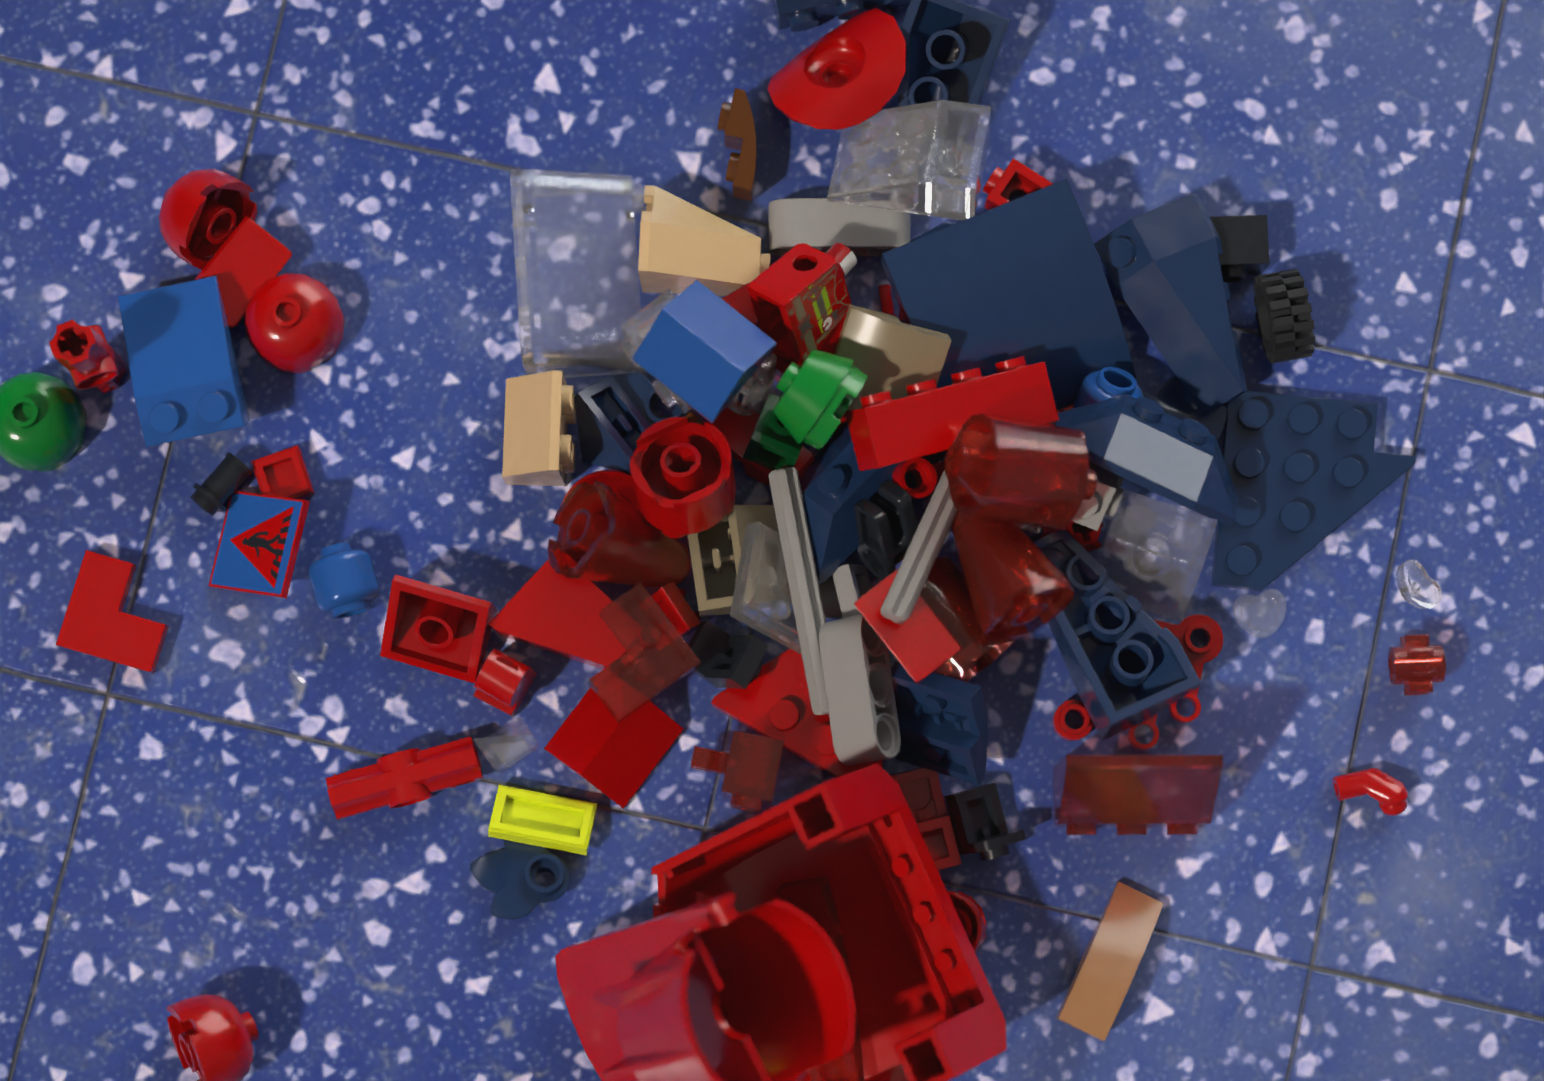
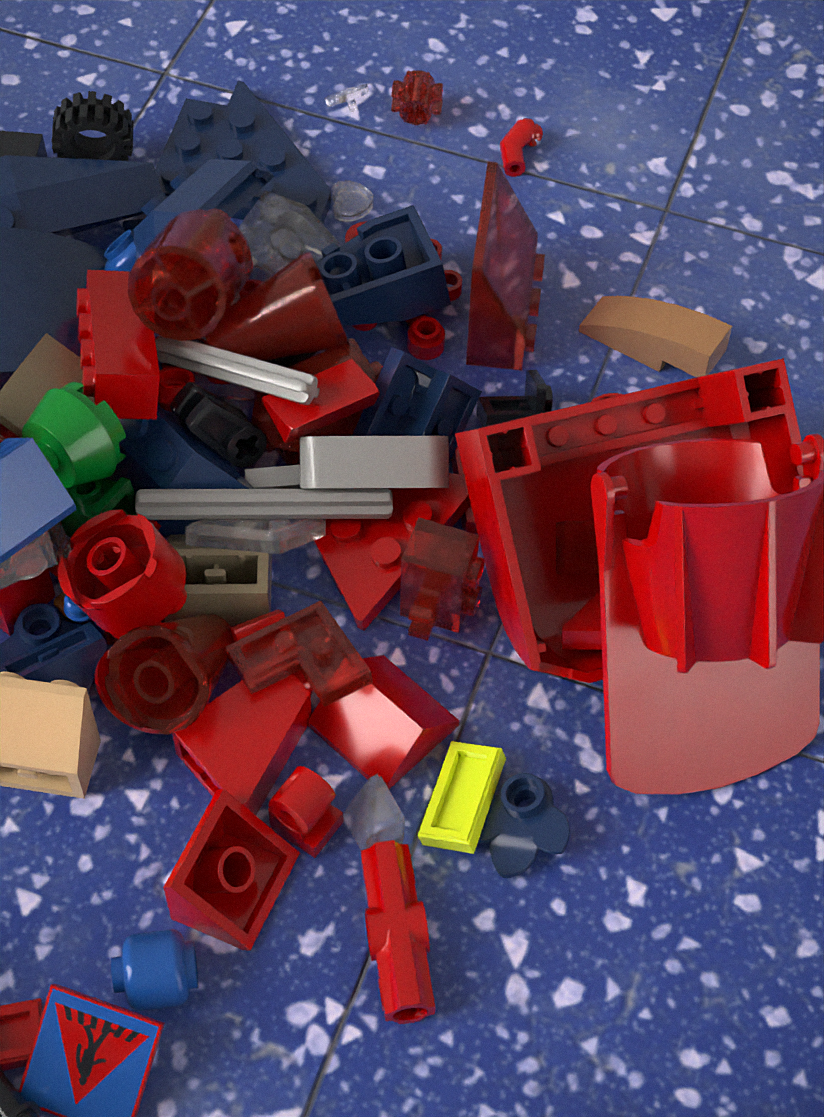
camera: 85 degrees left, 25 degrees down
(727, 658) = (322, 579): black bracket -> none

